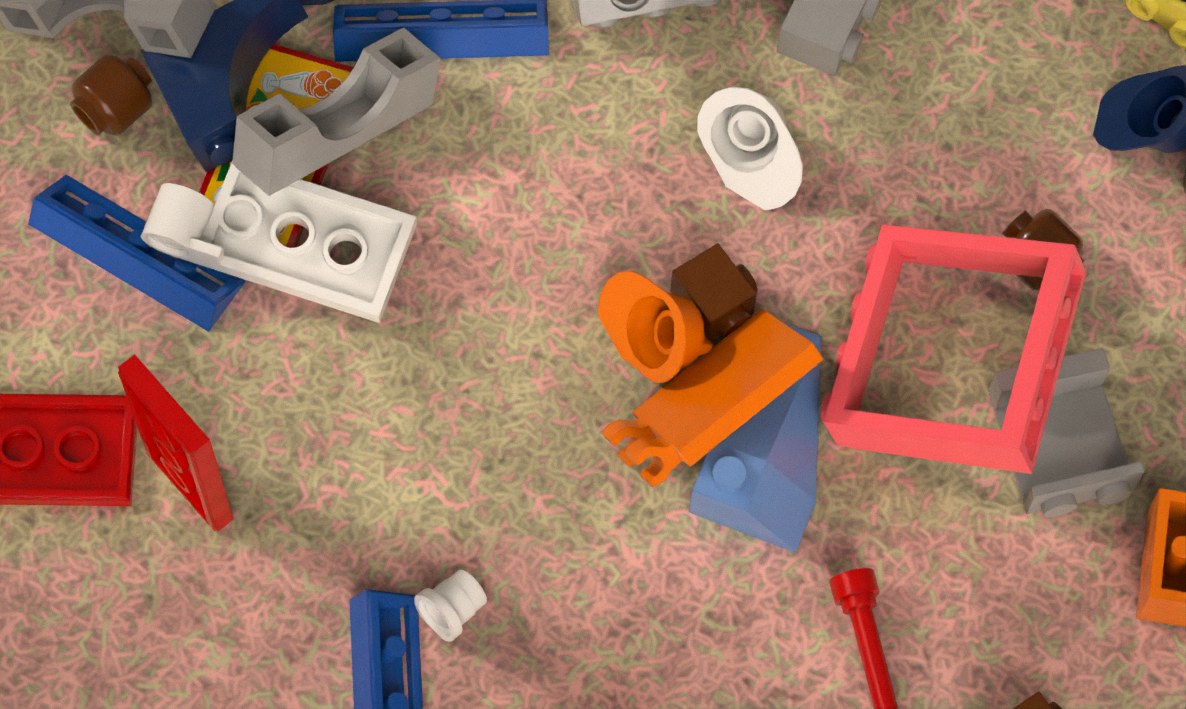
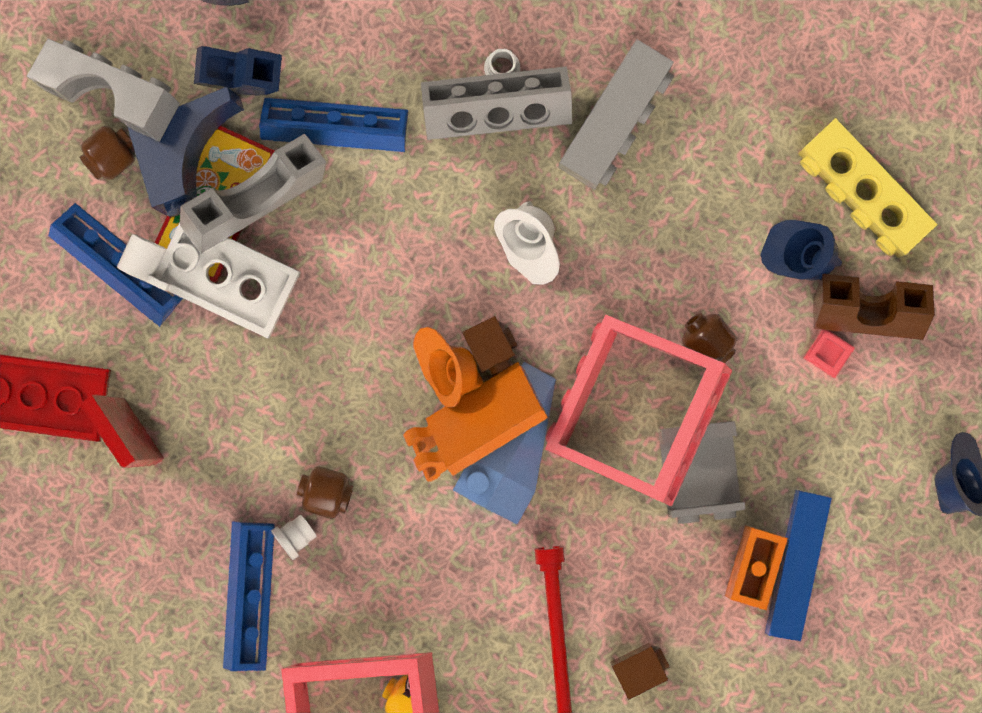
camera: 10 degrees right, 20 degrees up
(492, 531) = (325, 492): none -> reddish brown head

